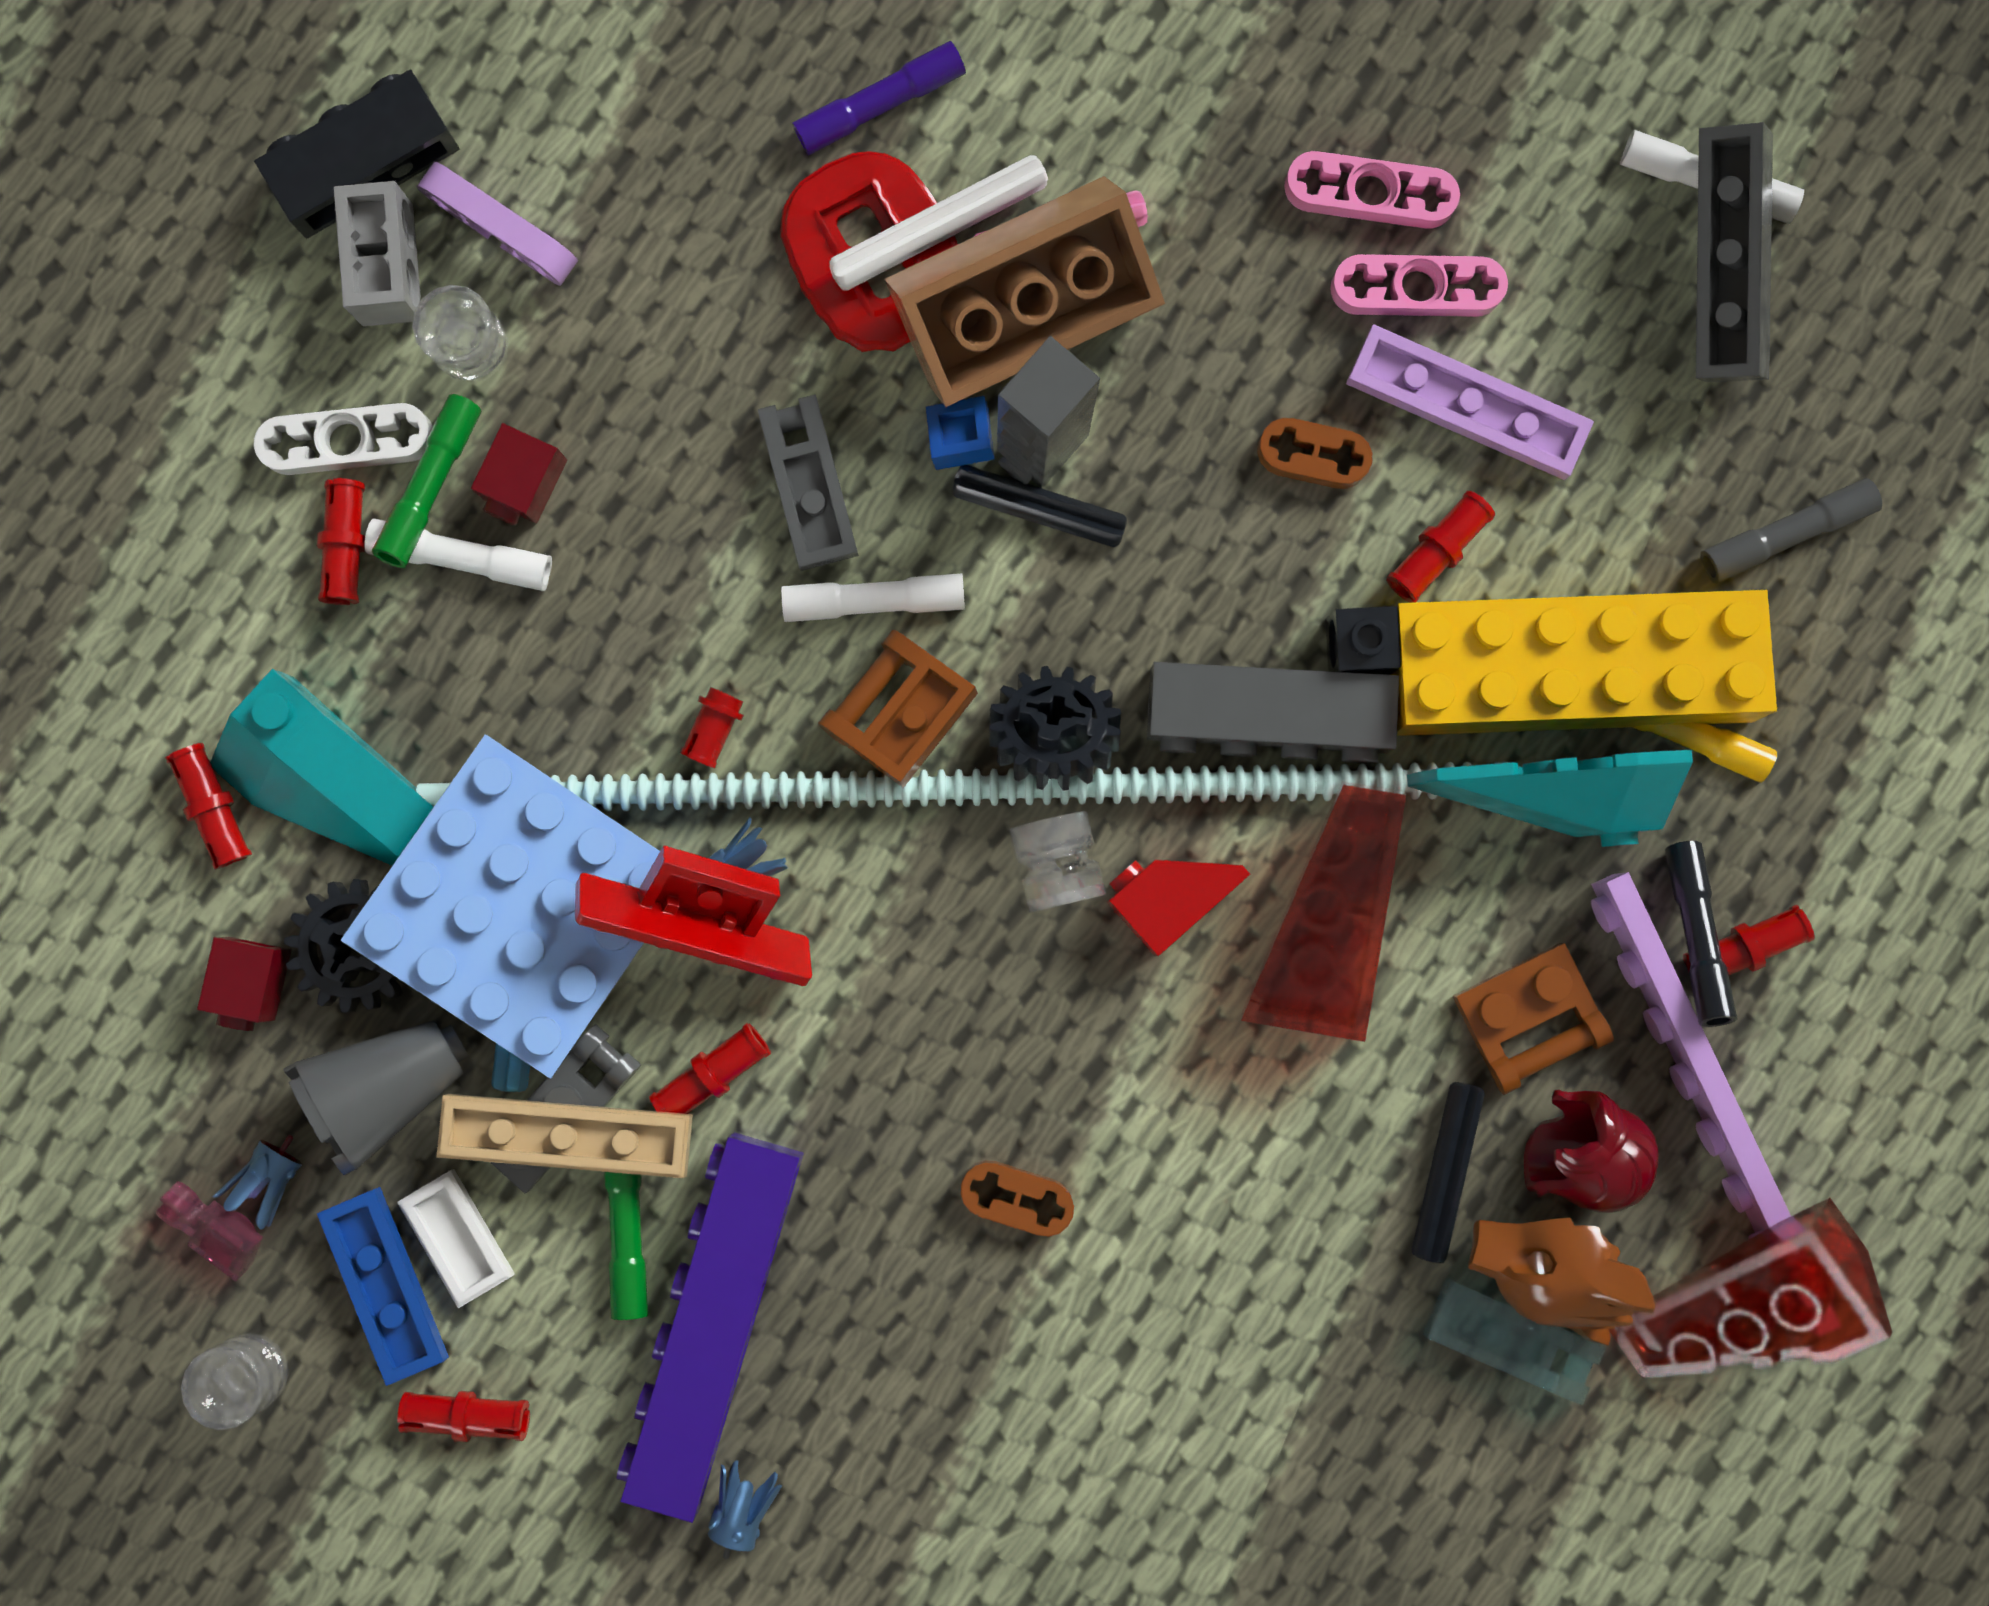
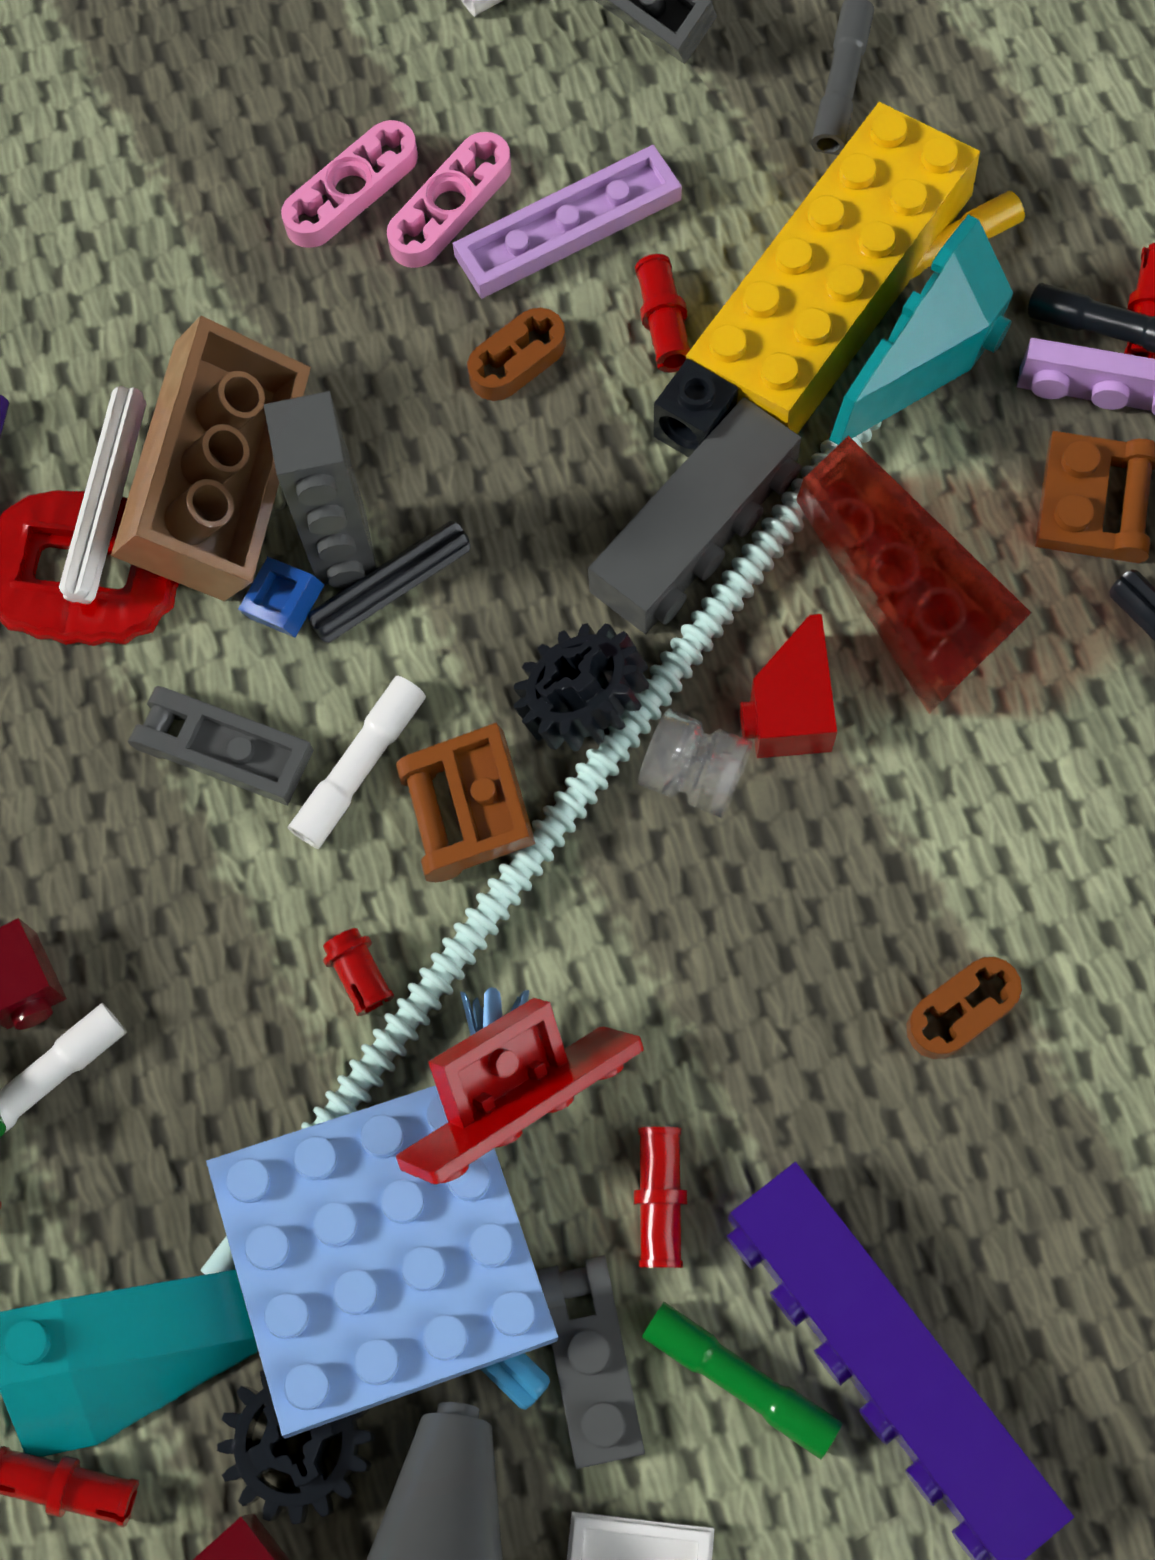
camera: 45 degrees left, 15 degrees down
(564, 1136) = (618, 1369): tan tile -> none
(738, 1513) = (1098, 1481): flat silver piece -> none

